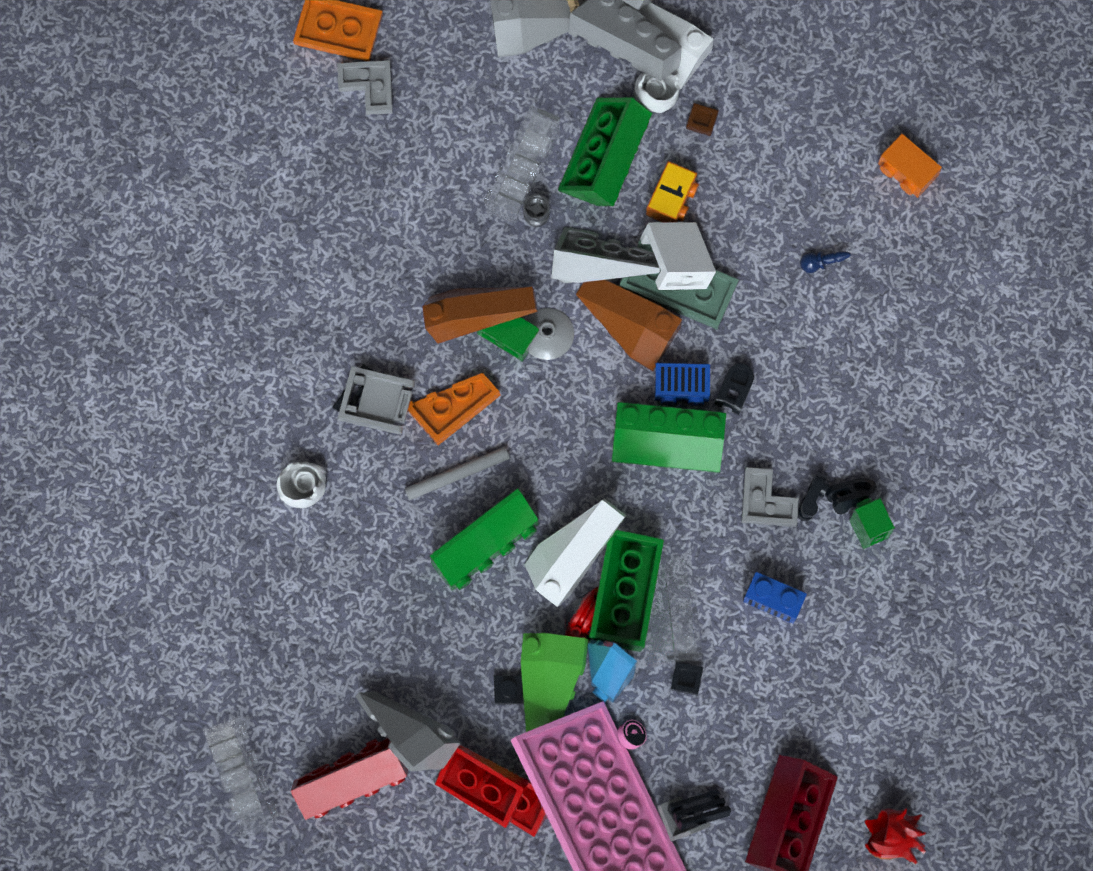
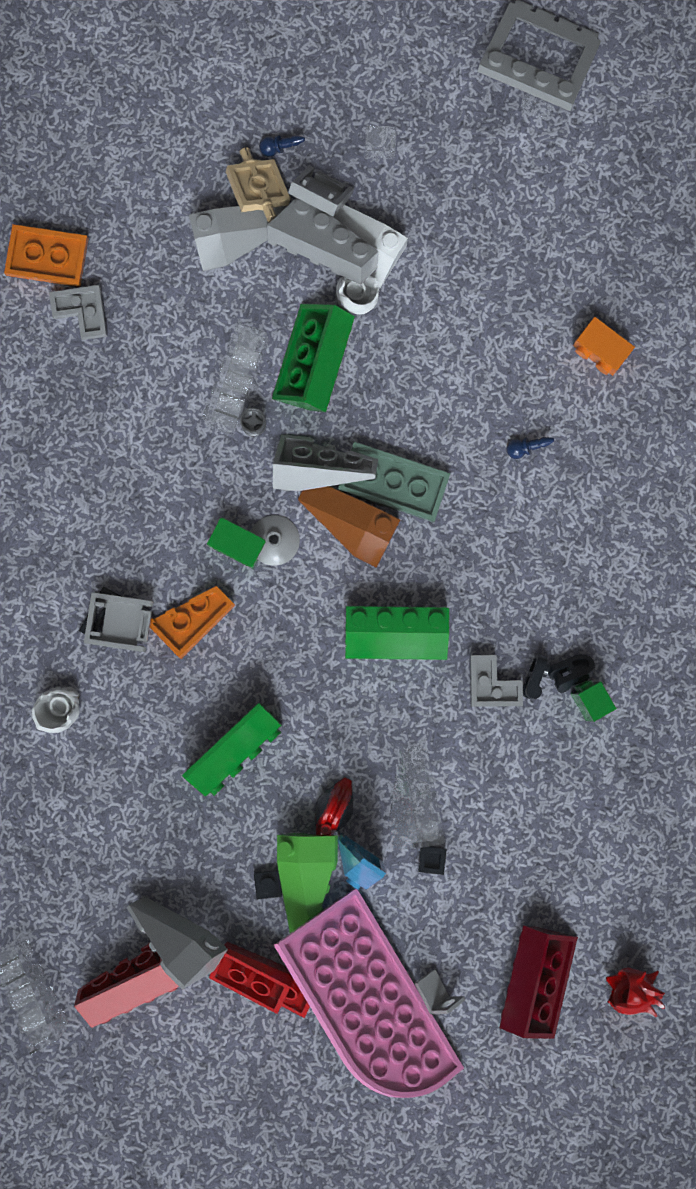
camera: 10 degrees left, 10 degrees up
(457, 473) = (201, 683): light grey piece -> none
(474, 309) = (202, 526): dark orange wedge -> none
(568, 554) = (311, 757): white wedge -> none
(626, 590) = (369, 785): green slope -> none
(632, 734) = (385, 917): tile -> none
(672, 194) = (381, 394): yellow brick -> none
(680, 255) = (392, 457): white panel -> none
(682, 383) = (404, 579): blue brick -> none
(696, 806) = (471, 973): black tile -> none
(702, 119) = (403, 316): reddish brown tile -> none
(740, 380) = (459, 570): black plate -> none
(774, 597) = (508, 777): blue brick -> none

